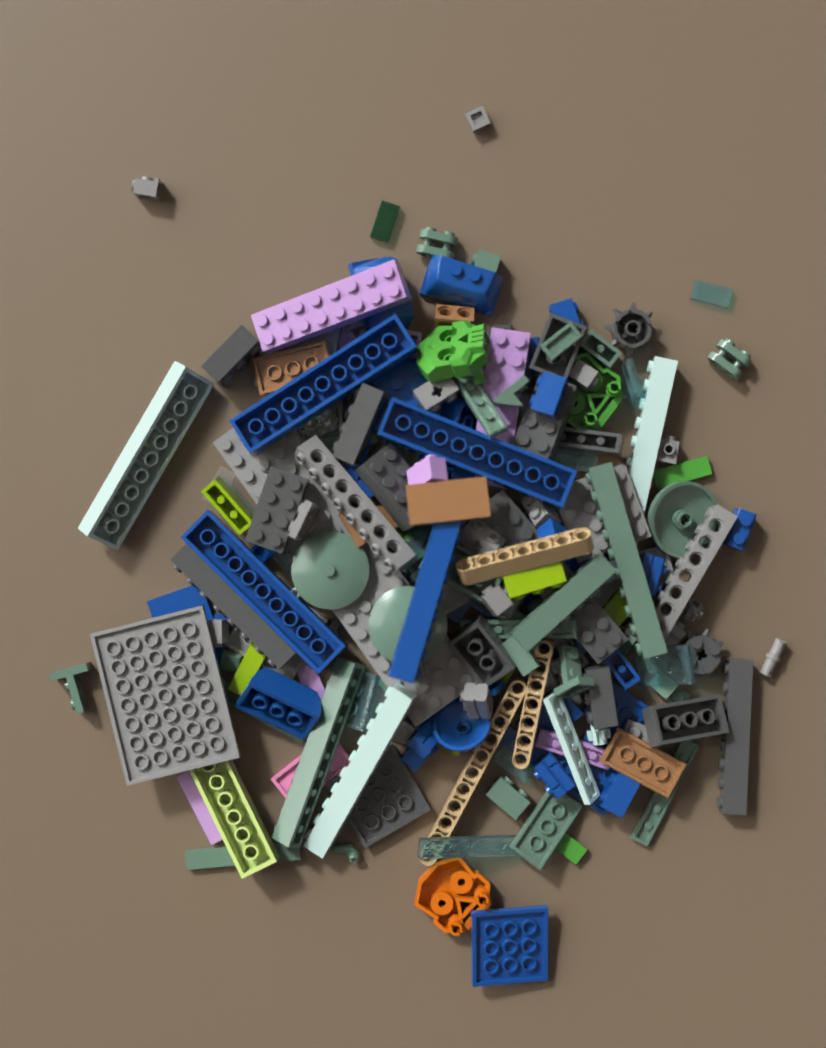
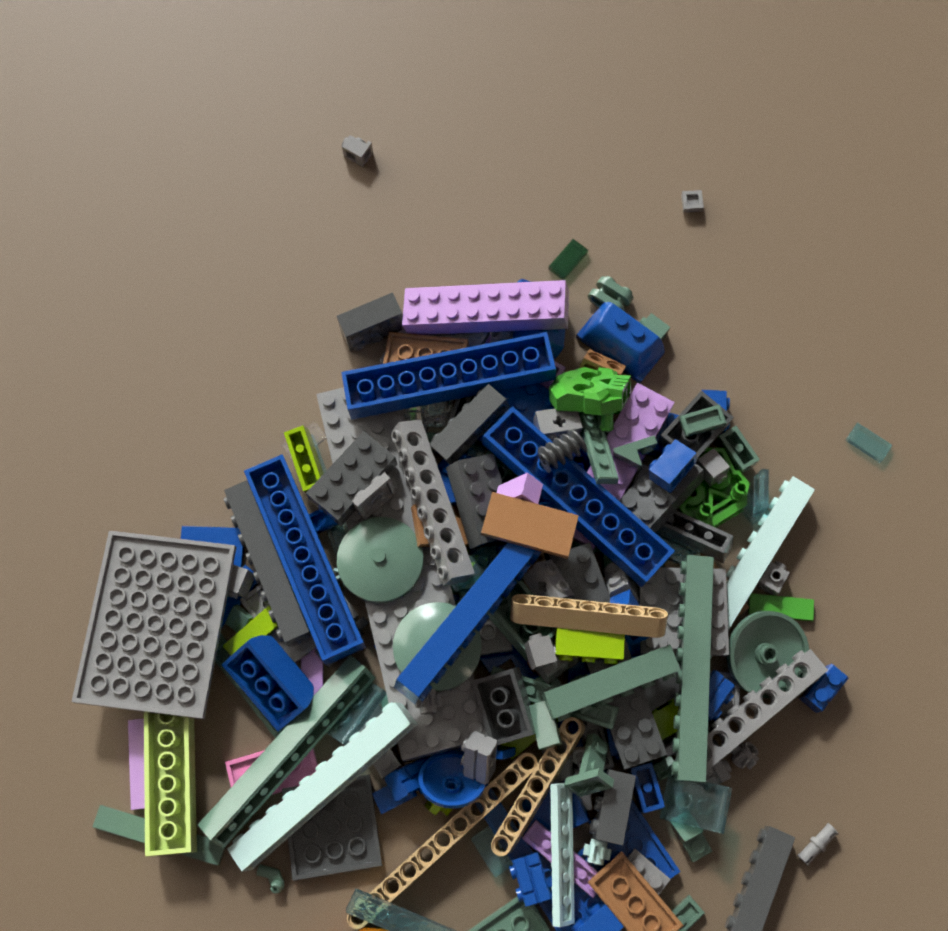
camera: 25 degrees right, 15 degrees down
(74, 685) = (69, 580): sand green bracket -> none
(145, 456) = (245, 383): light aqua brick -> none
(449, 422) = (561, 448): none -> dark grey piece
(508, 796) = (471, 885): sand green brick -> none
(629, 318) = (772, 434): dark grey brick -> none
(685, 720) = (698, 874): dark grey brick -> none
(710, 649) = (751, 807): dark grey brick -> none
(740, 359) = (868, 511): sand green brick -> none

